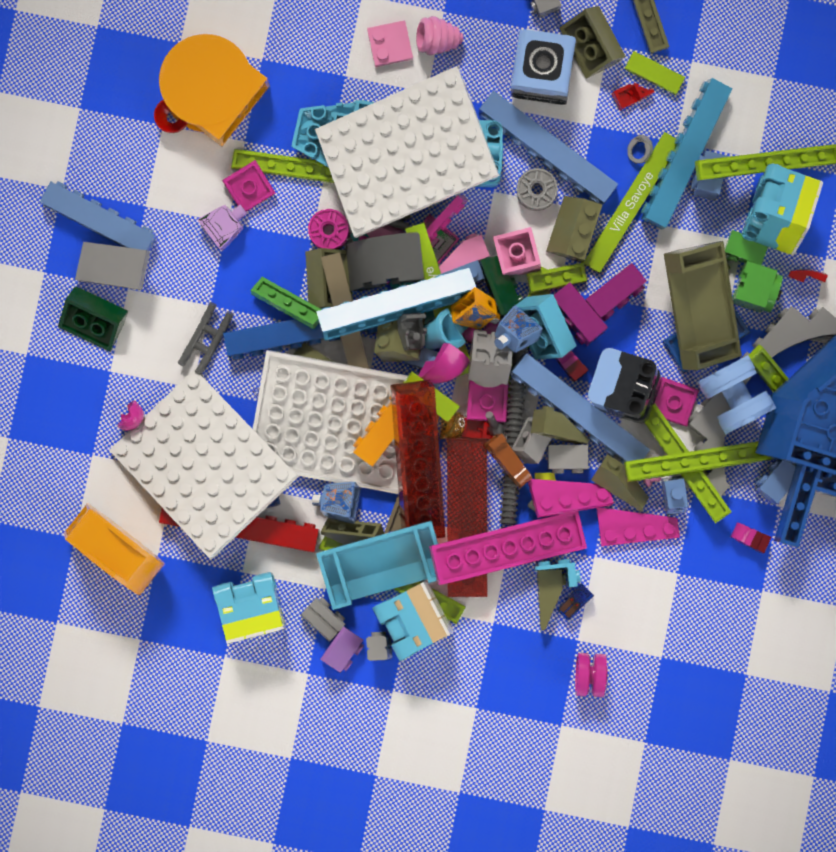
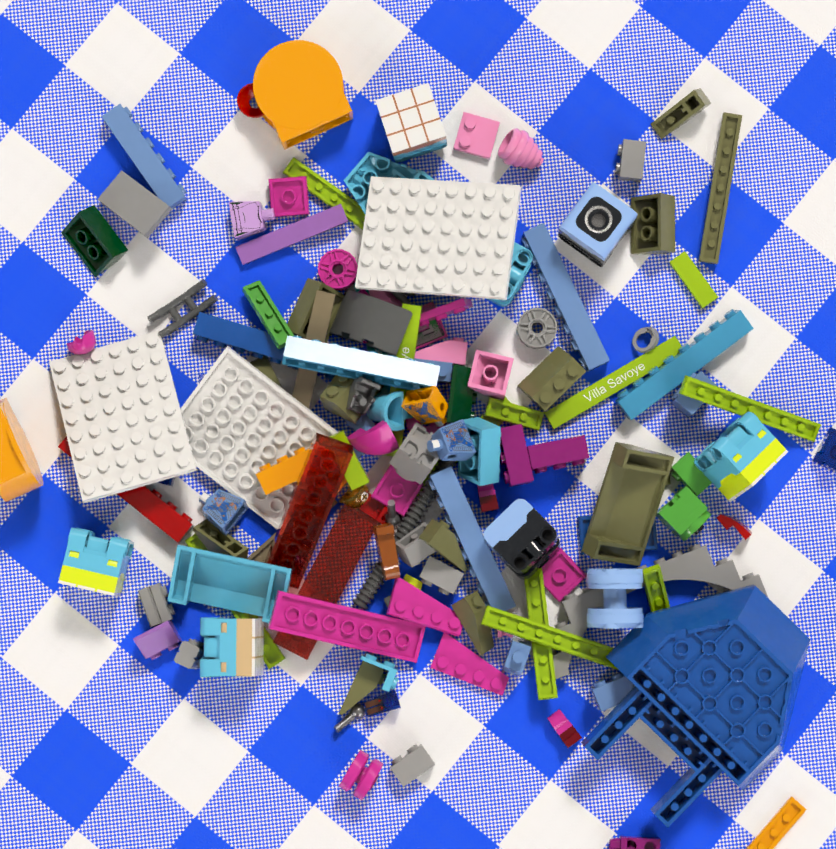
camera: 25 degrees right, 0 degrees up
(269, 219) = (291, 234): none -> medium lavender tile
(327, 61) = (412, 123): none -> white piece
(555, 622) = (356, 712): none -> flat silver bar
(630, 95) = (662, 288): red slope -> none
(631, 642) = (411, 765): none -> light grey brick

